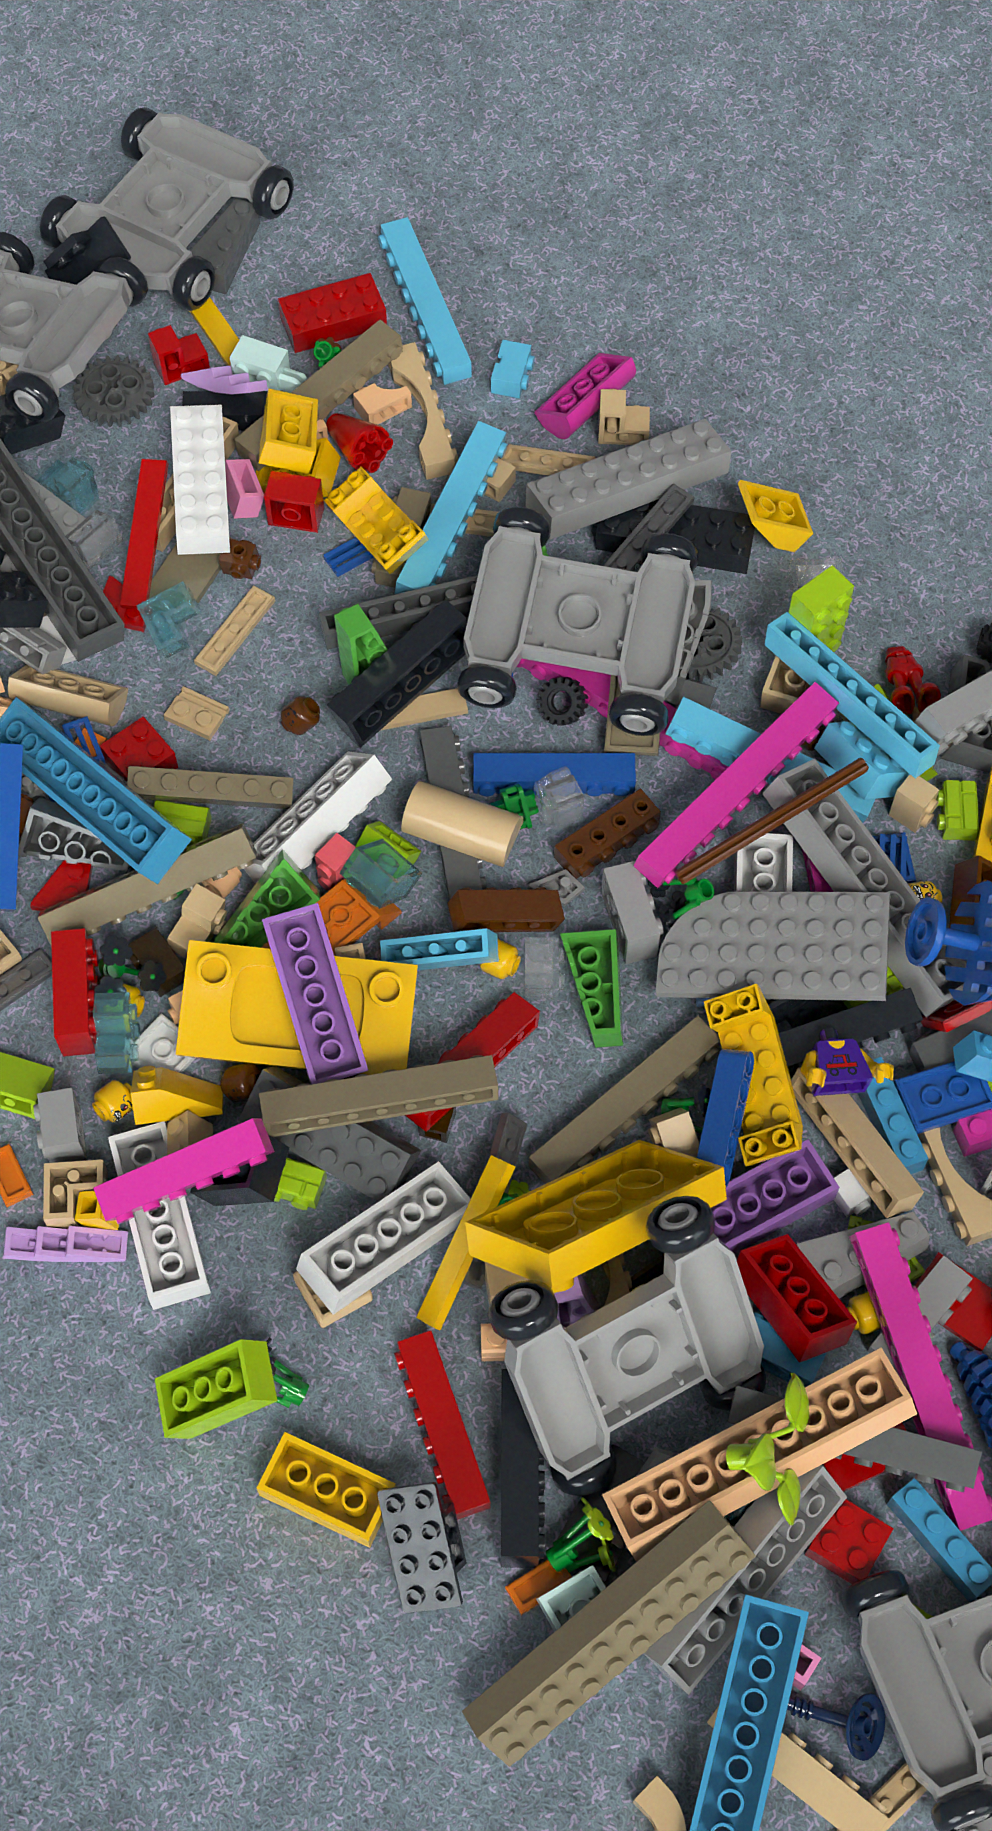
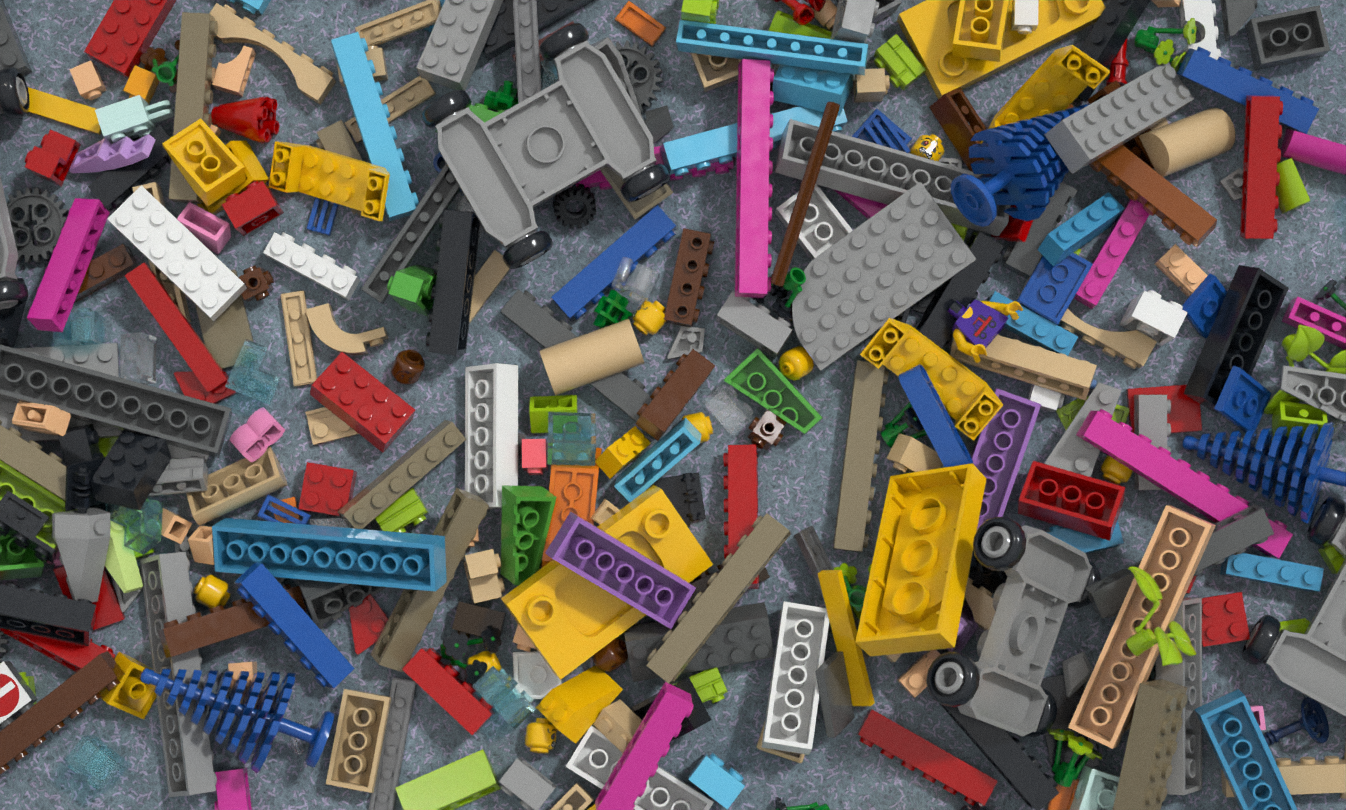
camera: 40 degrees left, 20 degrees up
(104, 426) = (68, 265): none -> dark pink brick
(111, 455) = (106, 270): none -> reddish brown brick
(121, 668) = (257, 434): none -> bright pink brick
(228, 1263) = (716, 780): none -> medium azure brick
(235, 710) = (362, 402): none -> red brick
(262, 324) = (88, 80): none -> light nougat brick
(264, 634) = (325, 327): none -> tan arch
(298, 580) = (315, 268): none -> white brick
(302, 356) = (141, 83): none -> light orange brick
(408, 1283) = (835, 694): none -> dark grey tile
(410, 919) = (622, 452): none -> yellow piece
(435, 1008) = (685, 495): none -> black hinge
(542, 837) = (649, 317): none -> yellow head
(561, 1010) = (766, 430): none -> reddish brown brick
(639, 976) = (795, 363): none -> yellow head
(751, 614) = (640, 23): none -> orange tile

